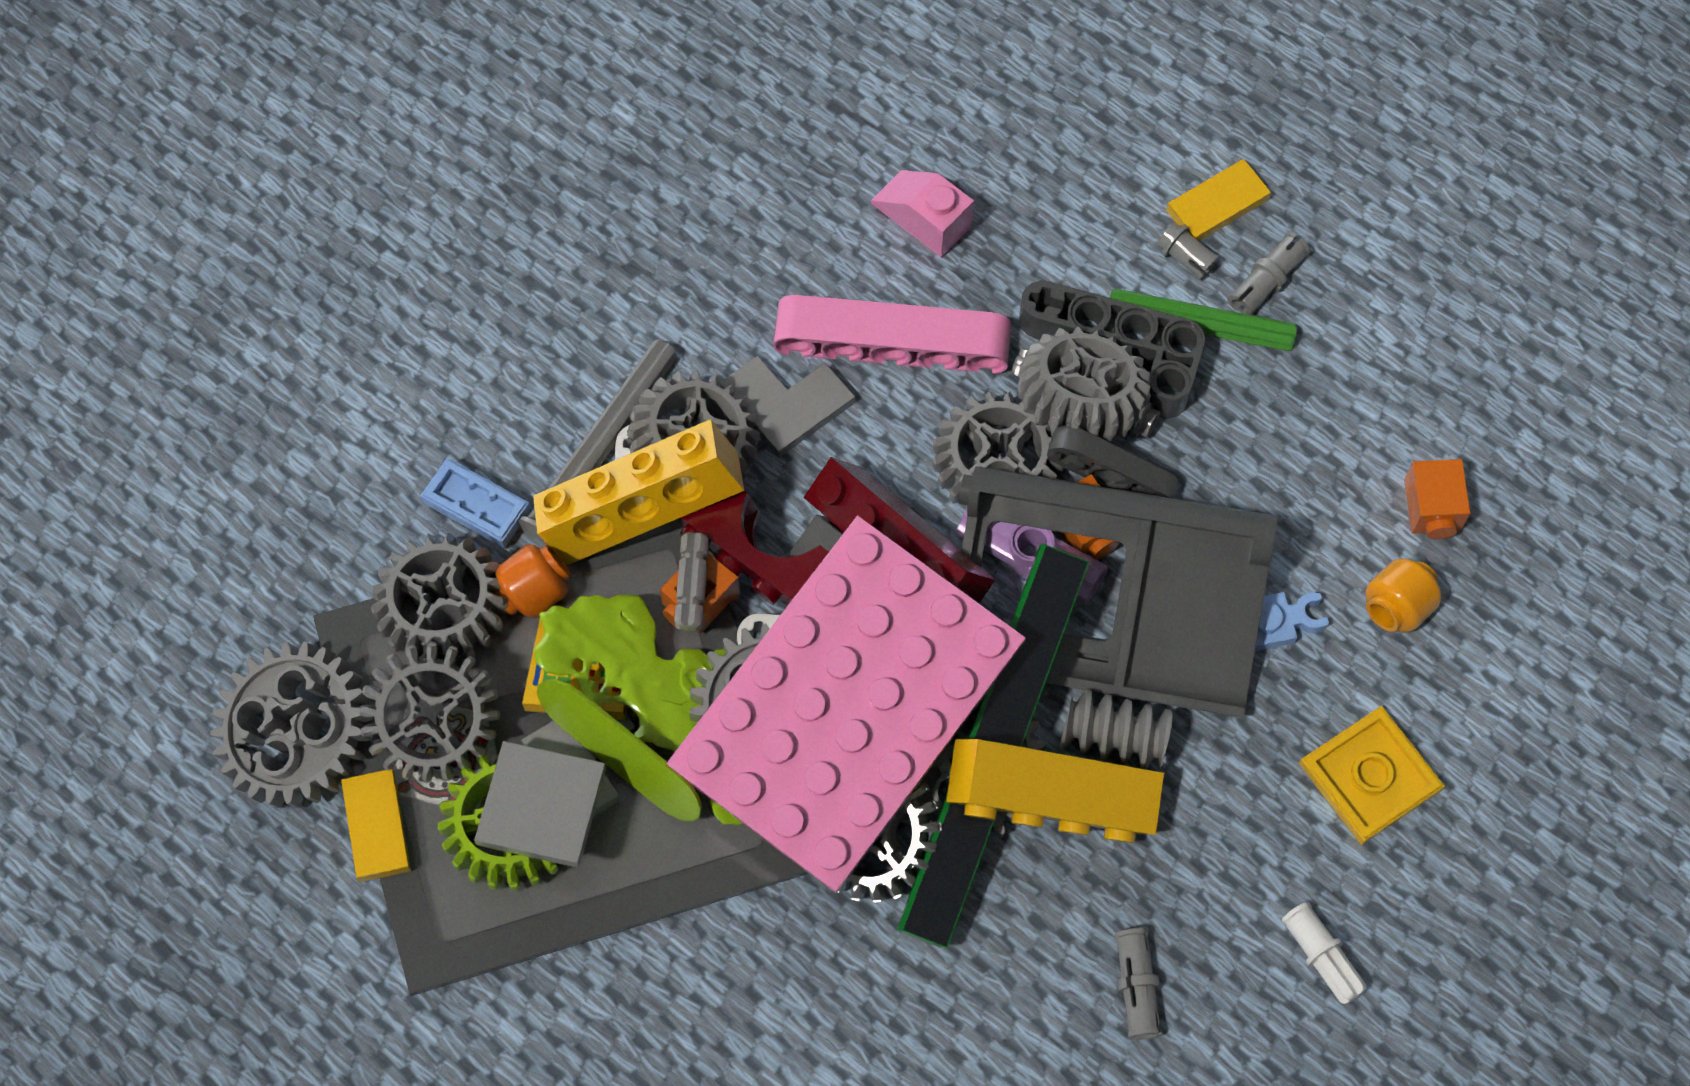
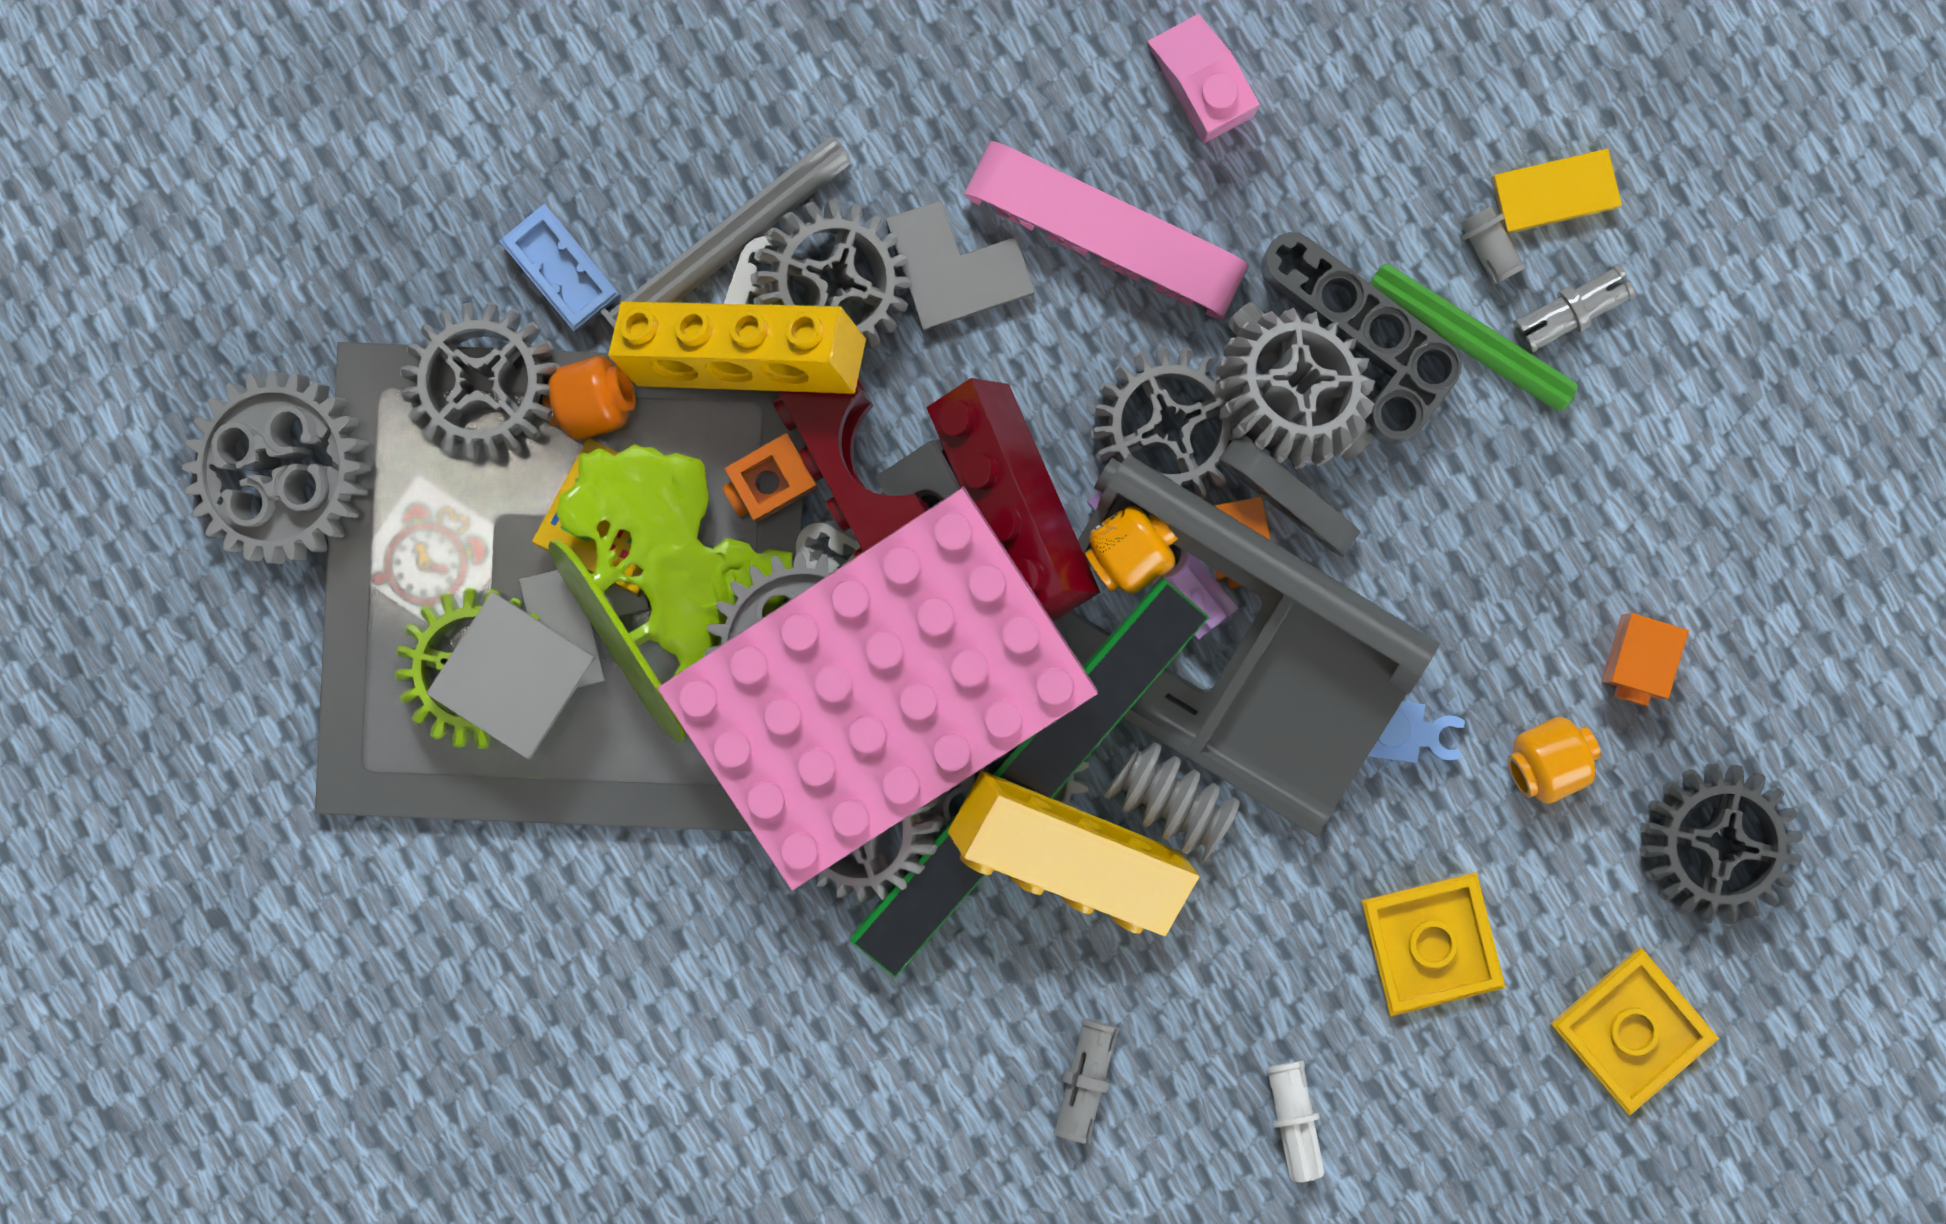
camera: 15 degrees right, 20 degrees up
(375, 825) = (333, 617): yellow tile -> none
(392, 737) = (384, 538): light grey gear -> none
(691, 582) = (760, 476): light grey axle -> none
(1007, 537) = (1131, 549): none -> light orange head
(1558, 578) = (1727, 816): none -> dark grey gear
(1562, 786) = (1634, 1031): none -> yellow tile

